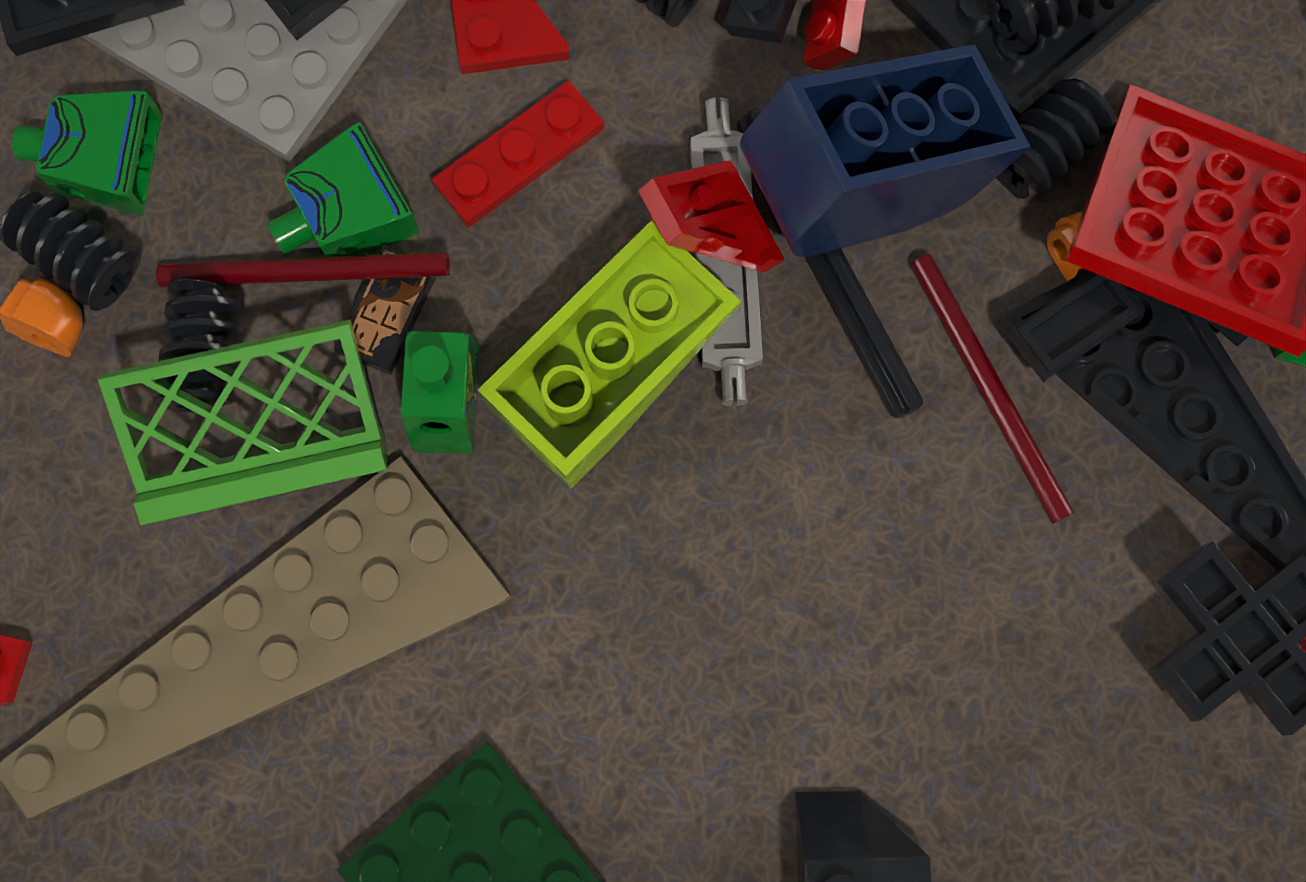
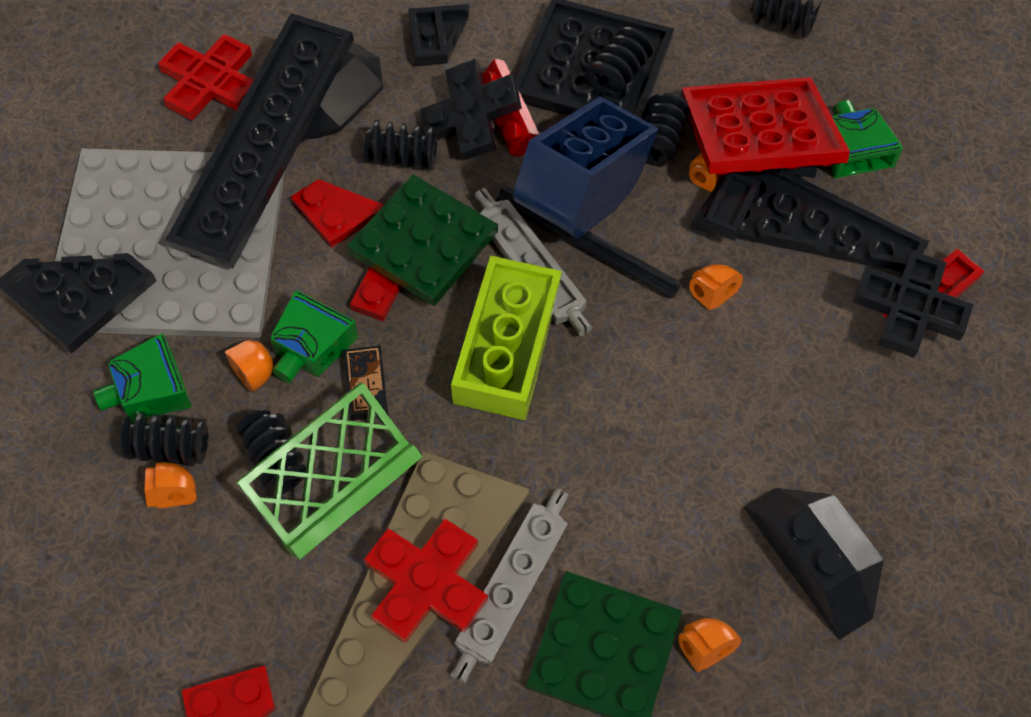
camera: 30 degrees left, 15 degrees down
(244, 198) = (250, 363): none -> orange piece
(285, 651) = (425, 580): none -> red plate
(308, 269) = (312, 380): dark red piece -> none
(405, 715) = (511, 584): none -> light grey plate
(440, 388) = (422, 396): green torso -> none
(582, 133) = (423, 239): none -> dark green plate
(712, 216) = (518, 240): red wing -> none
(971, 434) = (715, 284): none -> orange piece
(992, 389) = (706, 258): dark red piece -> none

